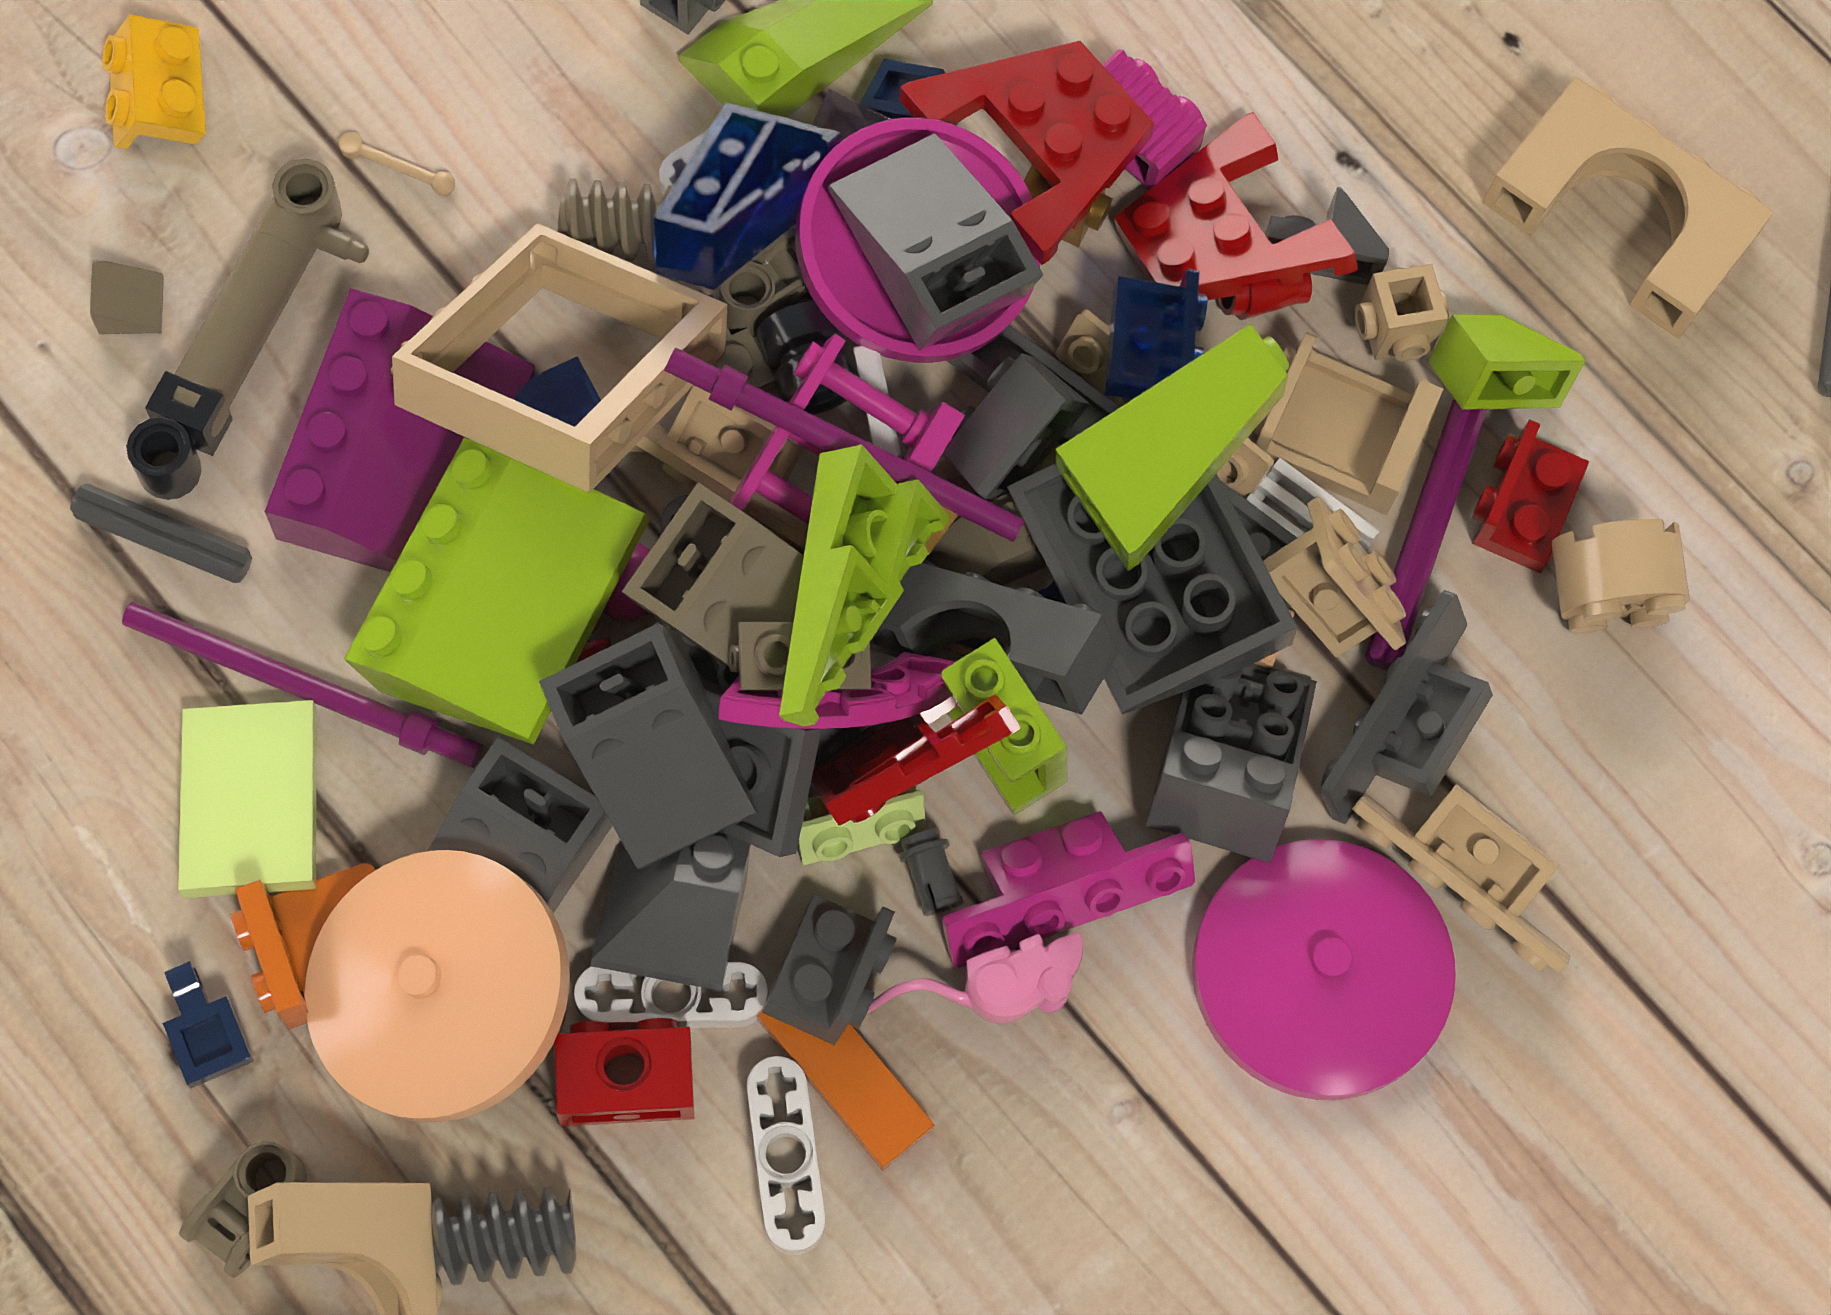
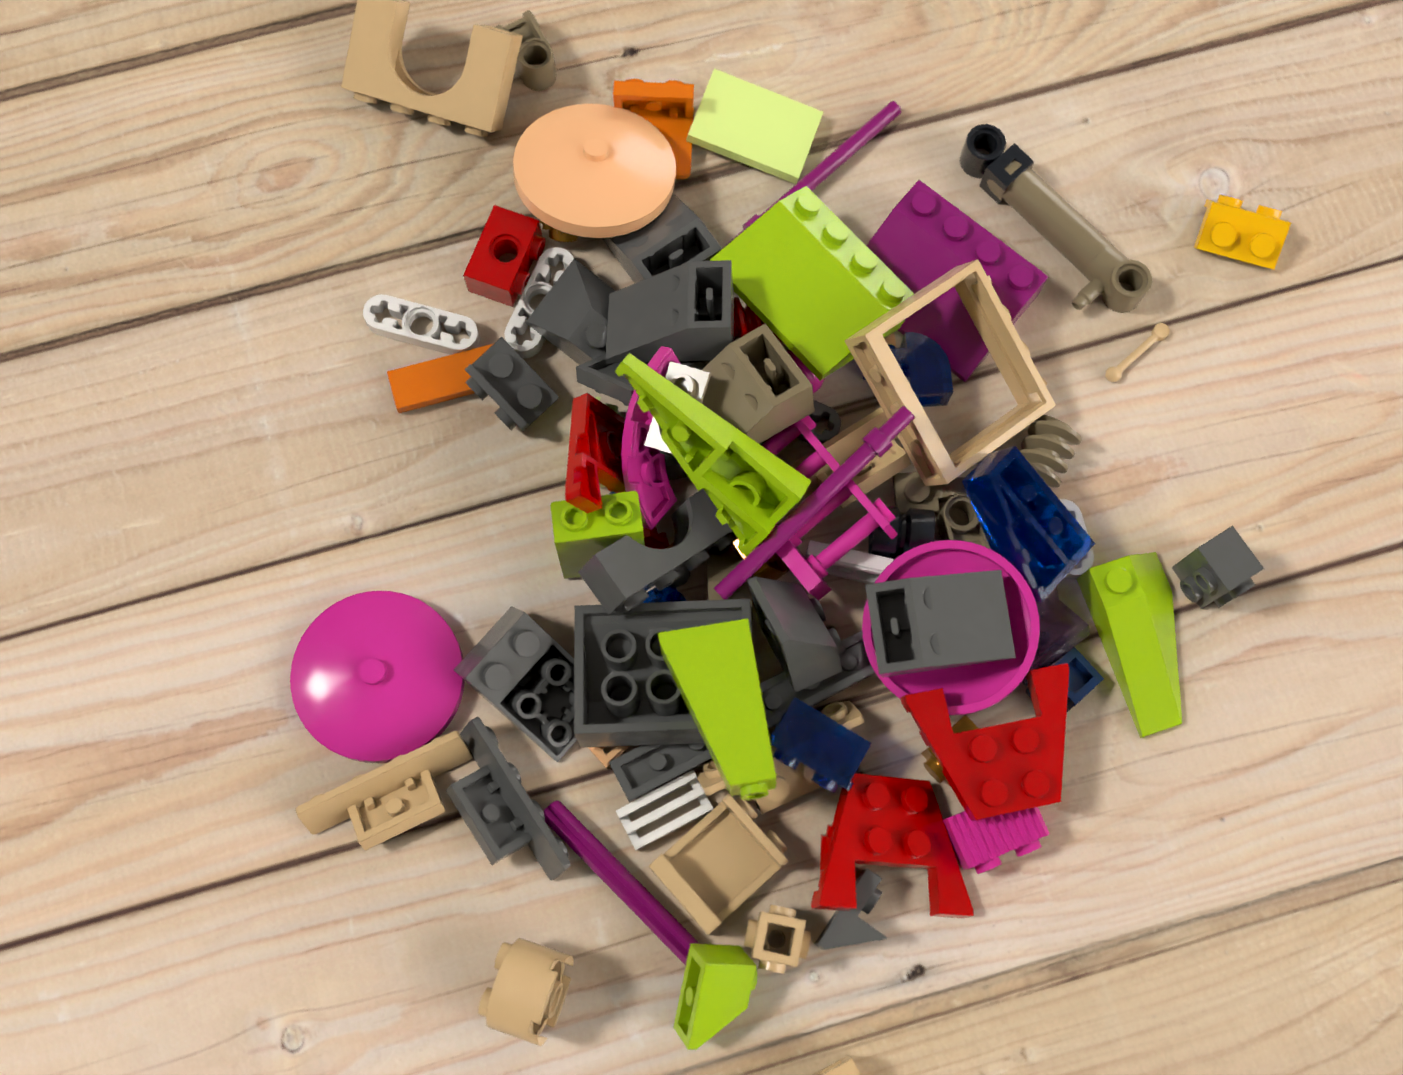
camera: 120 degrees right, 5 degrees up
(126, 299) = (1098, 167): dark tan slope -> none
(161, 533) = (937, 138): dark grey axle -> none
(205, 1034) = (631, 60): dark blue plate -> none
(504, 1236) = (443, 160): dark grey piece -> none
(931, 871) = (542, 471): dark grey pin -> none
(1009, 984) = (455, 483): bright pink animal -> none
(1063, 882) = (504, 542): dark pink bracket -> none
(1337, 583) = (604, 795): tan bracket -> none
(1529, 500) = (615, 967): red bracket -> none

